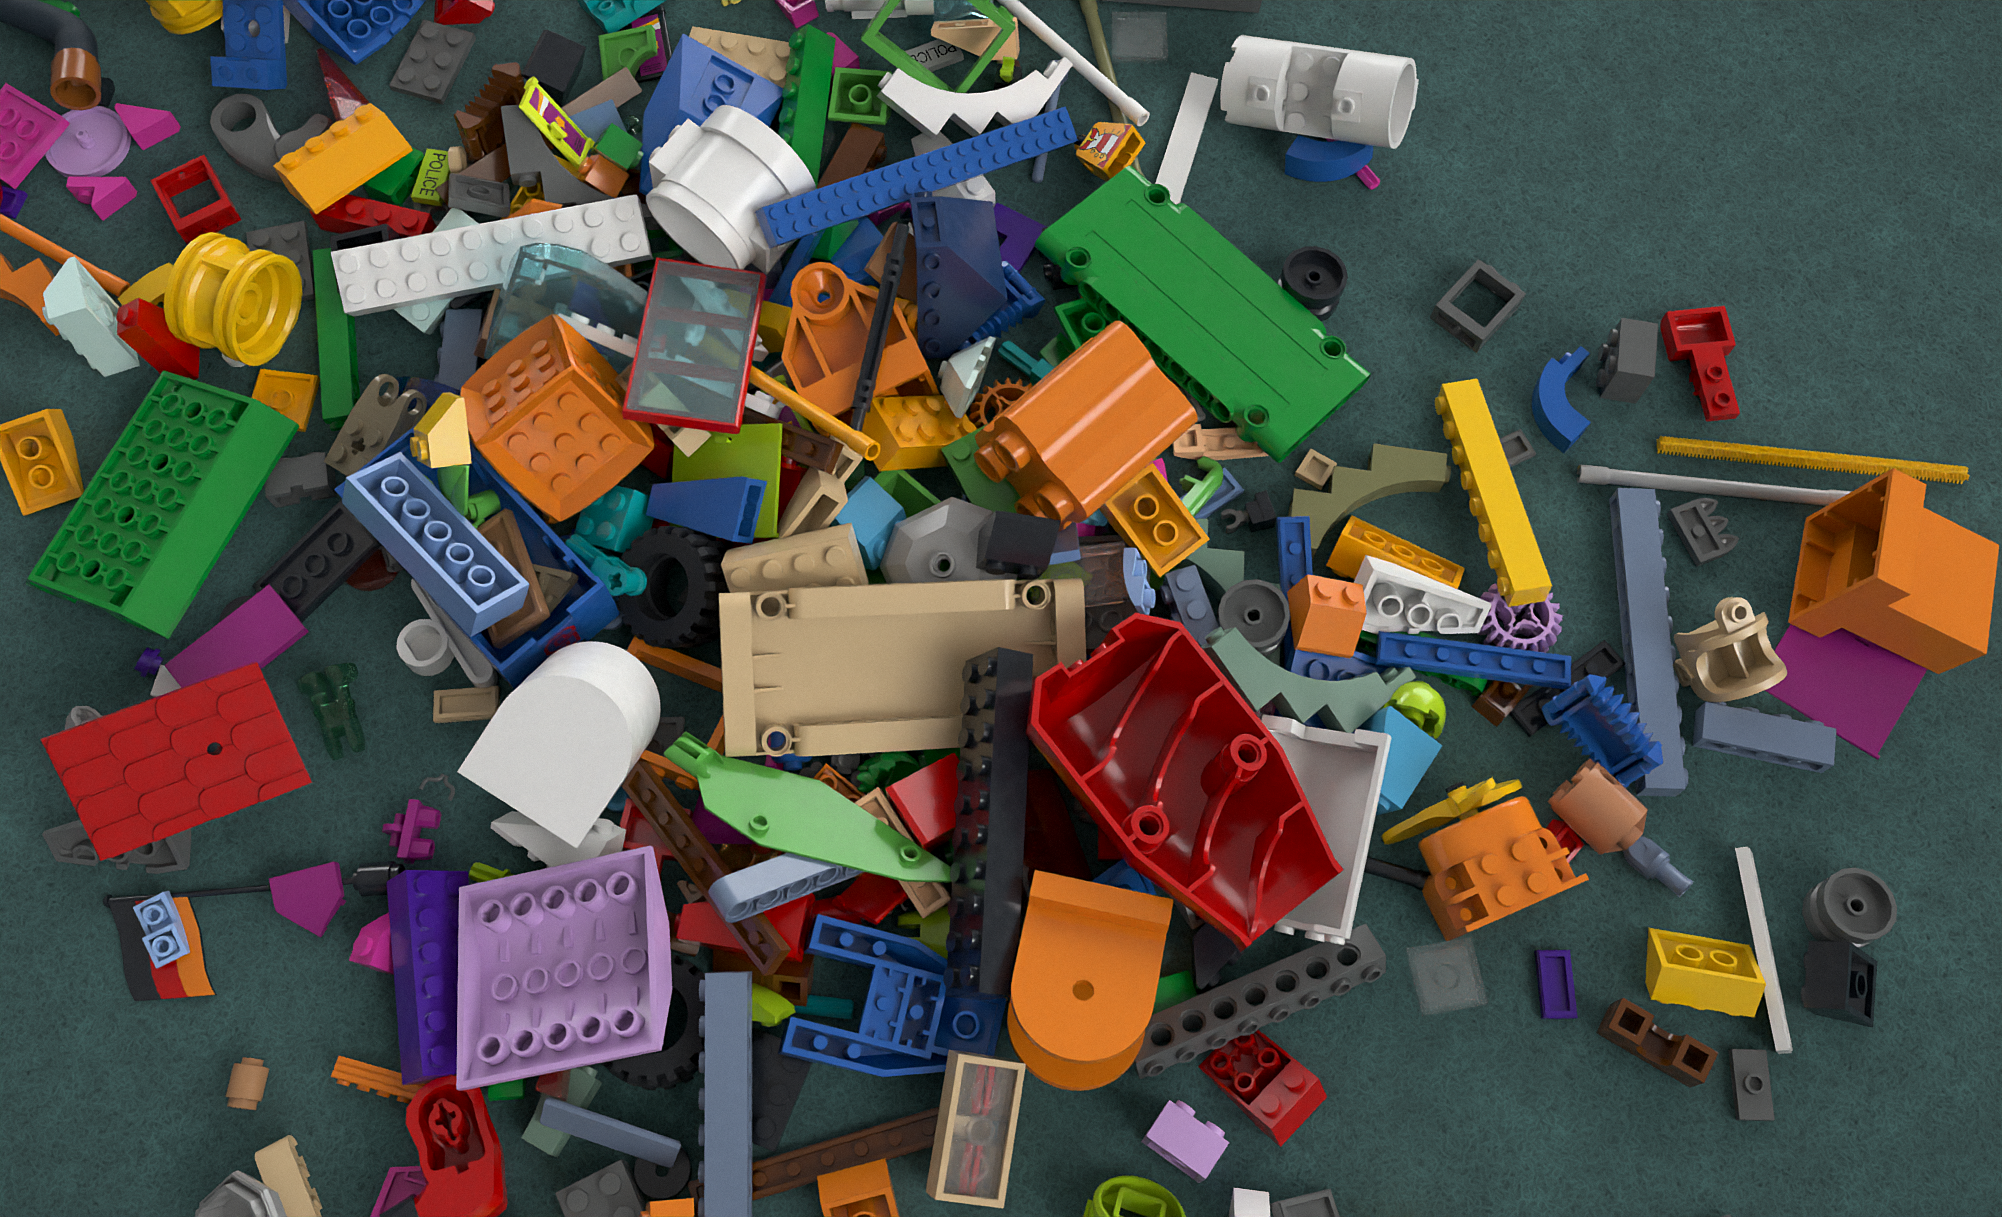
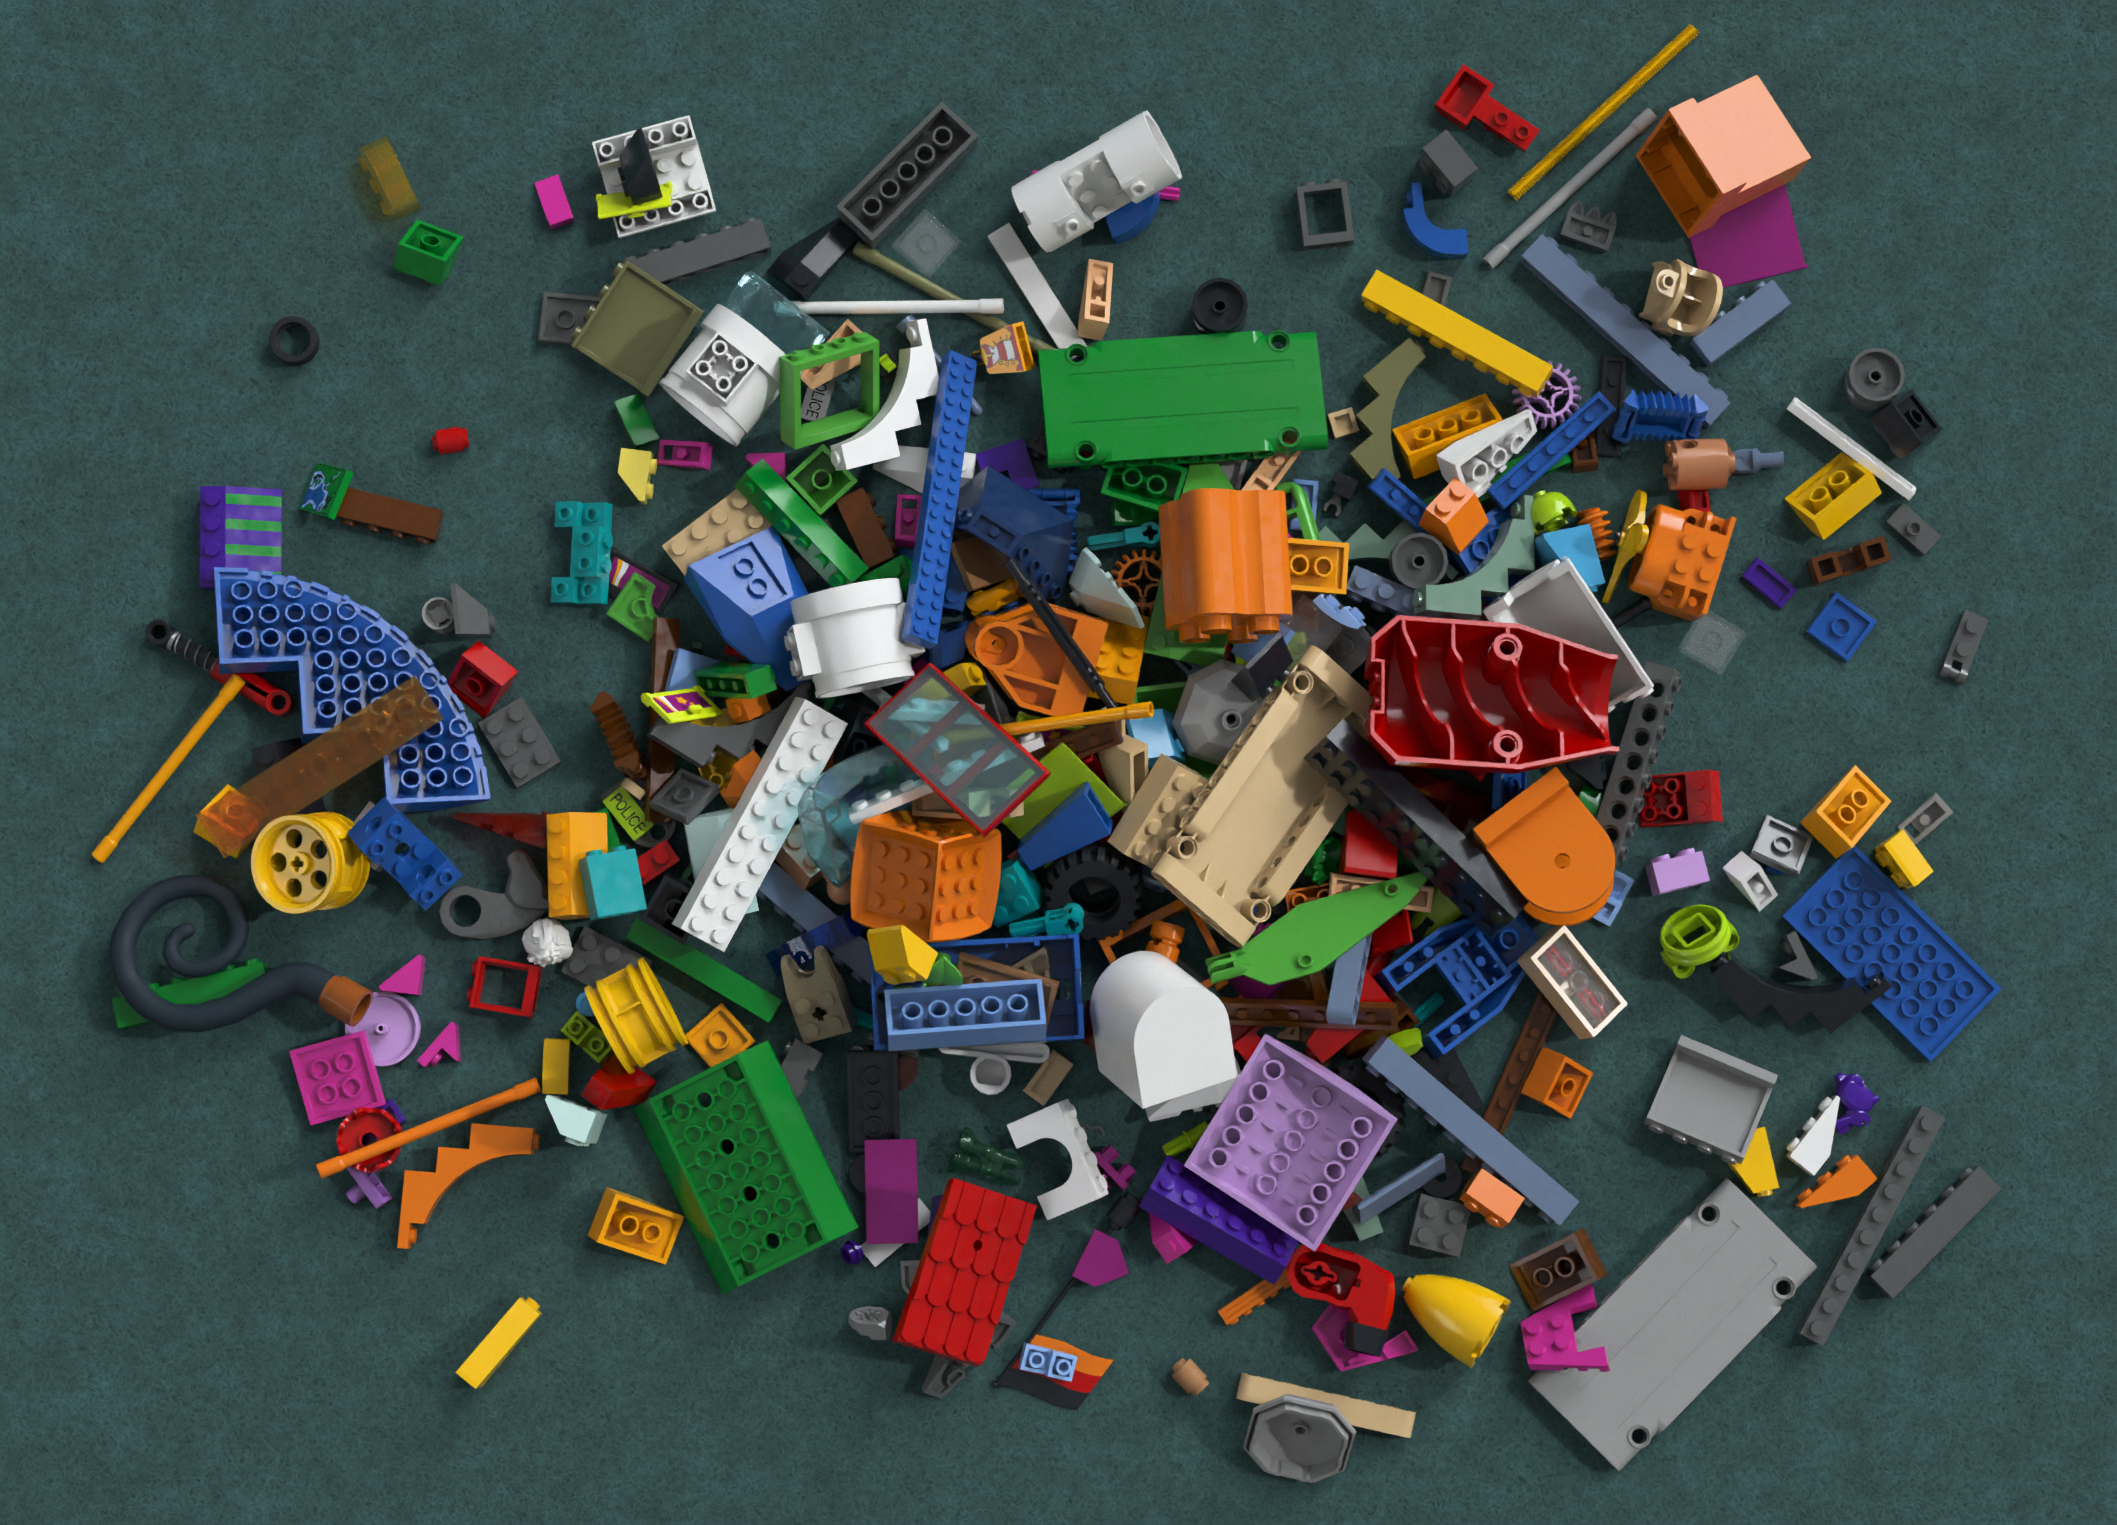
camera: 50 degrees left, 15 degrees up
(258, 195) = (547, 942): none -> white hair
(343, 188) = (612, 883): none -> teal brick
(377, 809) = (1085, 1180): none -> white arch
(555, 65) = (615, 665): black slope -> none
(679, 690) = (1165, 939): none -> orange wheel
(1106, 1100) = (1621, 886): none -> light blue slope
(1220, 187) = (1095, 300): none -> light nougat slope
(1440, 772) = (1594, 517): none -> orange piece
(1585, 1097) = (1841, 627): none -> blue tile

